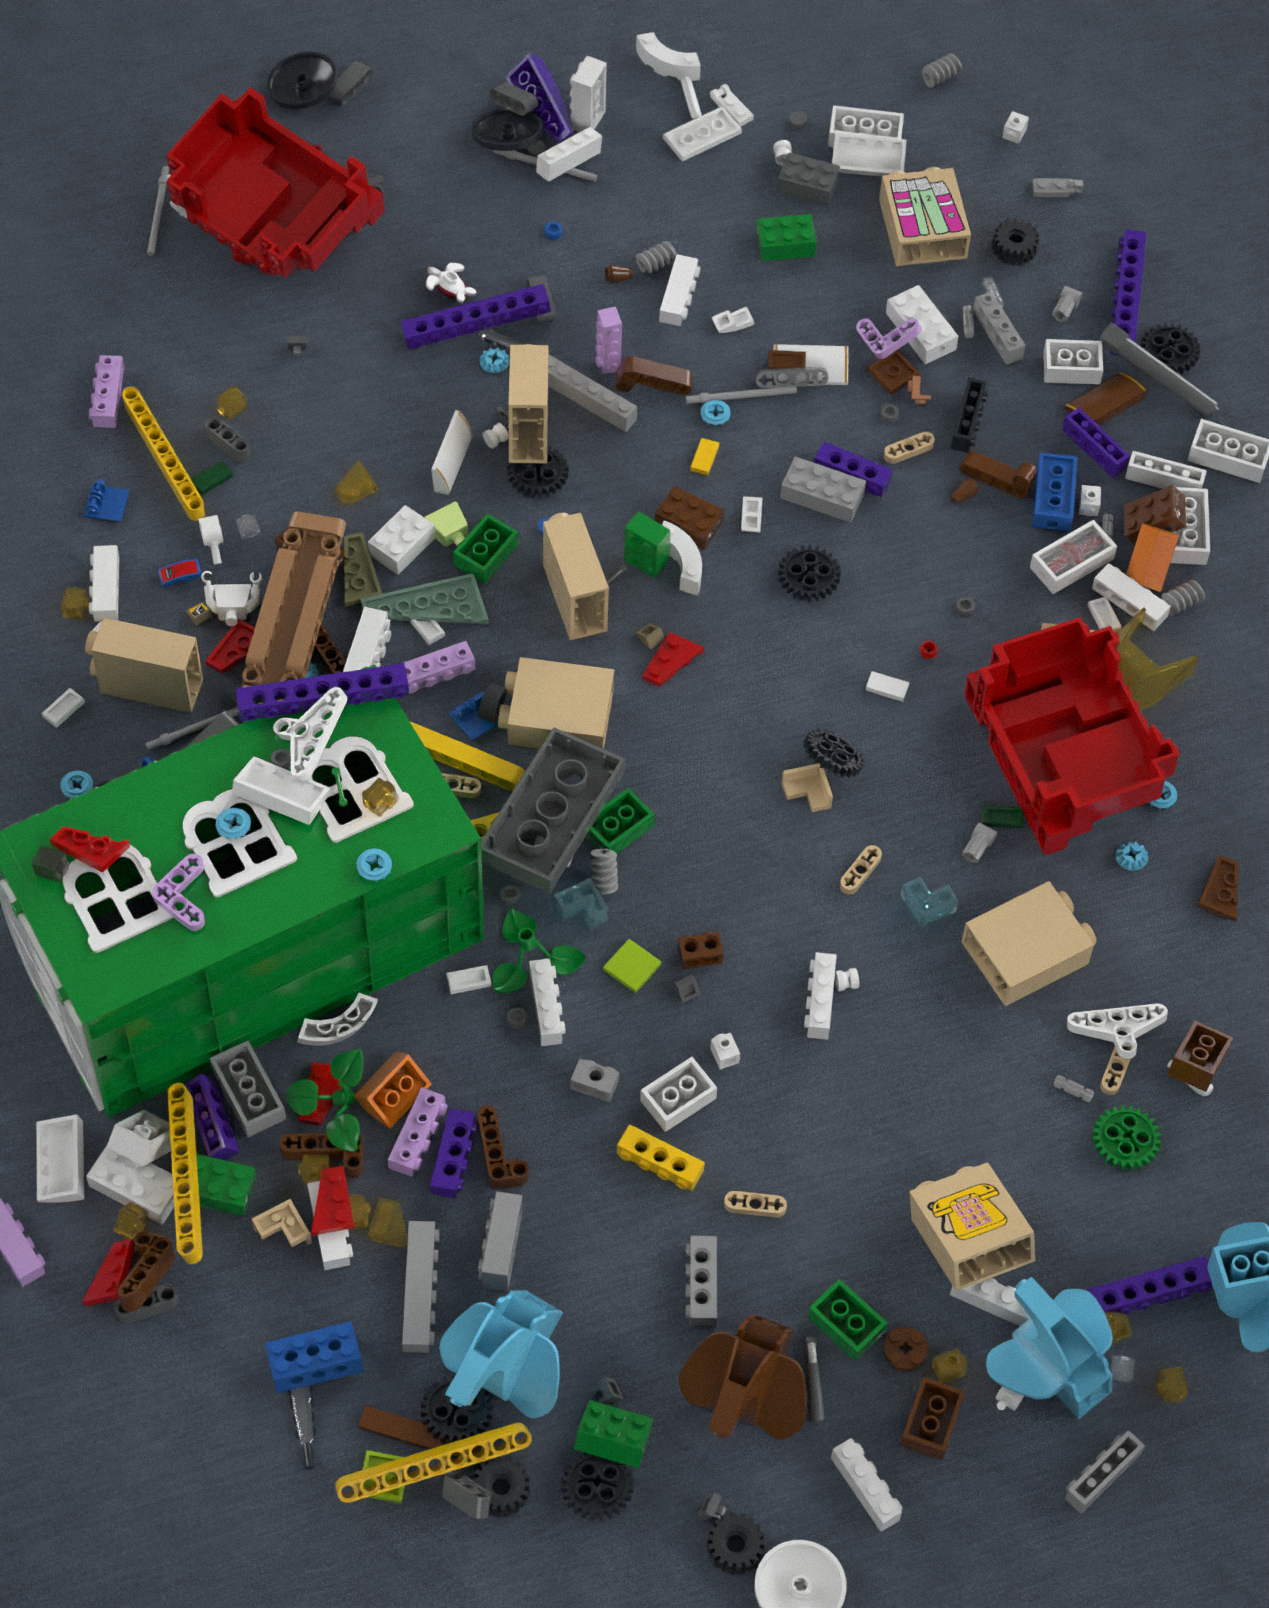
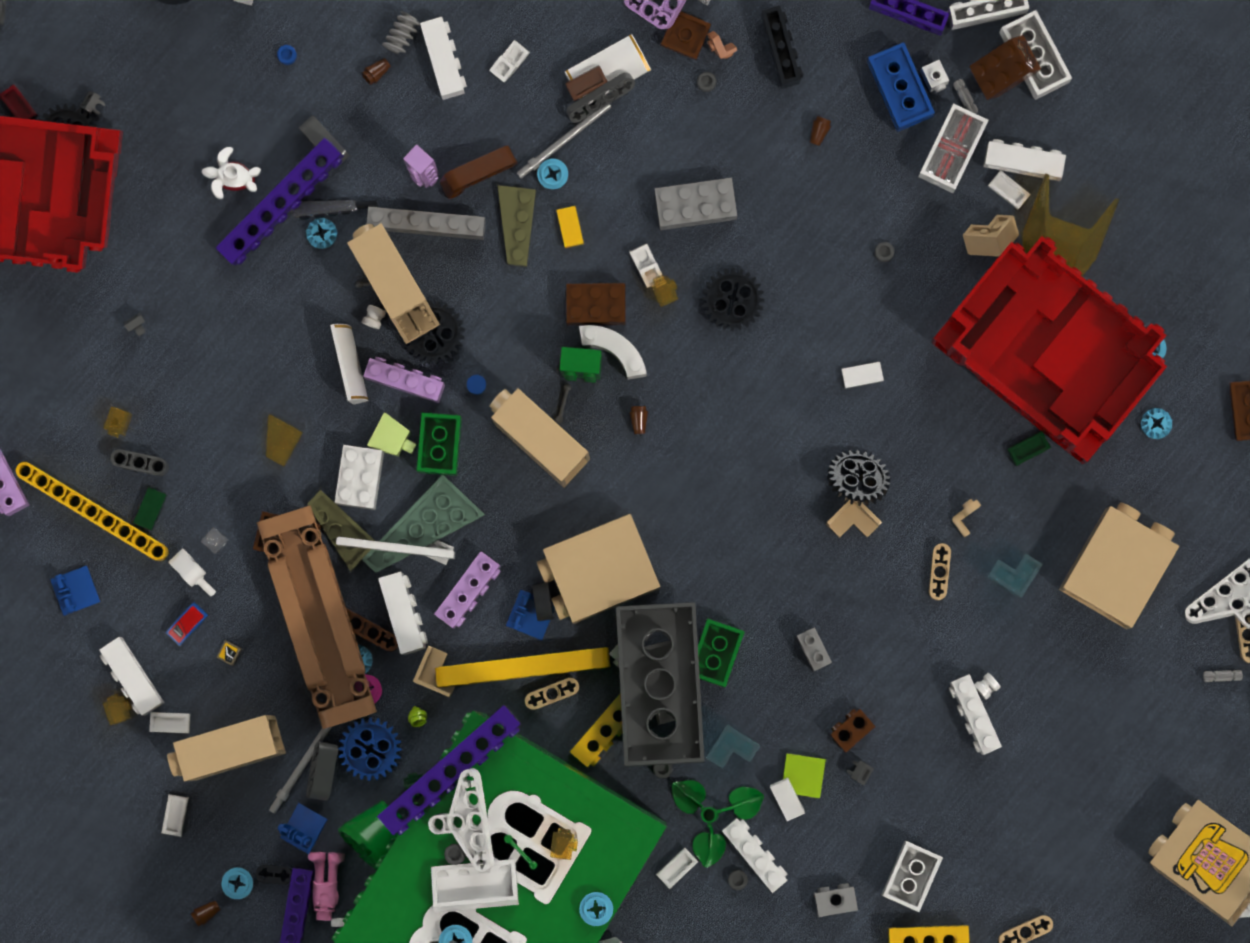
camera: 20 degrees left, 25 degrees up
(32, 792) = (205, 913): none -> reddish brown cone
(232, 600) = (253, 628): white torso -> none
(232, 647) = (282, 670): red wing -> none
(395, 601) = (393, 547): none -> white tile
(489, 490) = (404, 380): none -> lavender brick
(605, 870) = (732, 707): light grey piece -> none
(605, 974) = (787, 799): none -> white tile
(651, 635) = (631, 443): dark tan slope -> none
(662, 432) = (517, 219): none -> olive wing
(670, 617) = (638, 419): none -> reddish brown cone
(670, 657) = (662, 456): red wing -> none
(707, 868) = (813, 649): none -> light grey brick
(725, 1050) = (924, 811): white brick -> none
(754, 535) = (664, 290): none -> clear yellow brick
(875, 475) = (718, 159): dark purple brick -> none
(904, 454) = (757, 100): tan beam -> none
(919, 832) = (969, 507): none -> tan plate
(931, 646) = (877, 312): red plate -> none
(980, 839) = (1024, 482): light grey piece -> none
(999, 475) = (840, 95): reddish brown beam -> none
(1152, 556) = (1025, 113): orange slope -> none
(1183, 596) = (1067, 133): light grey piece -> none

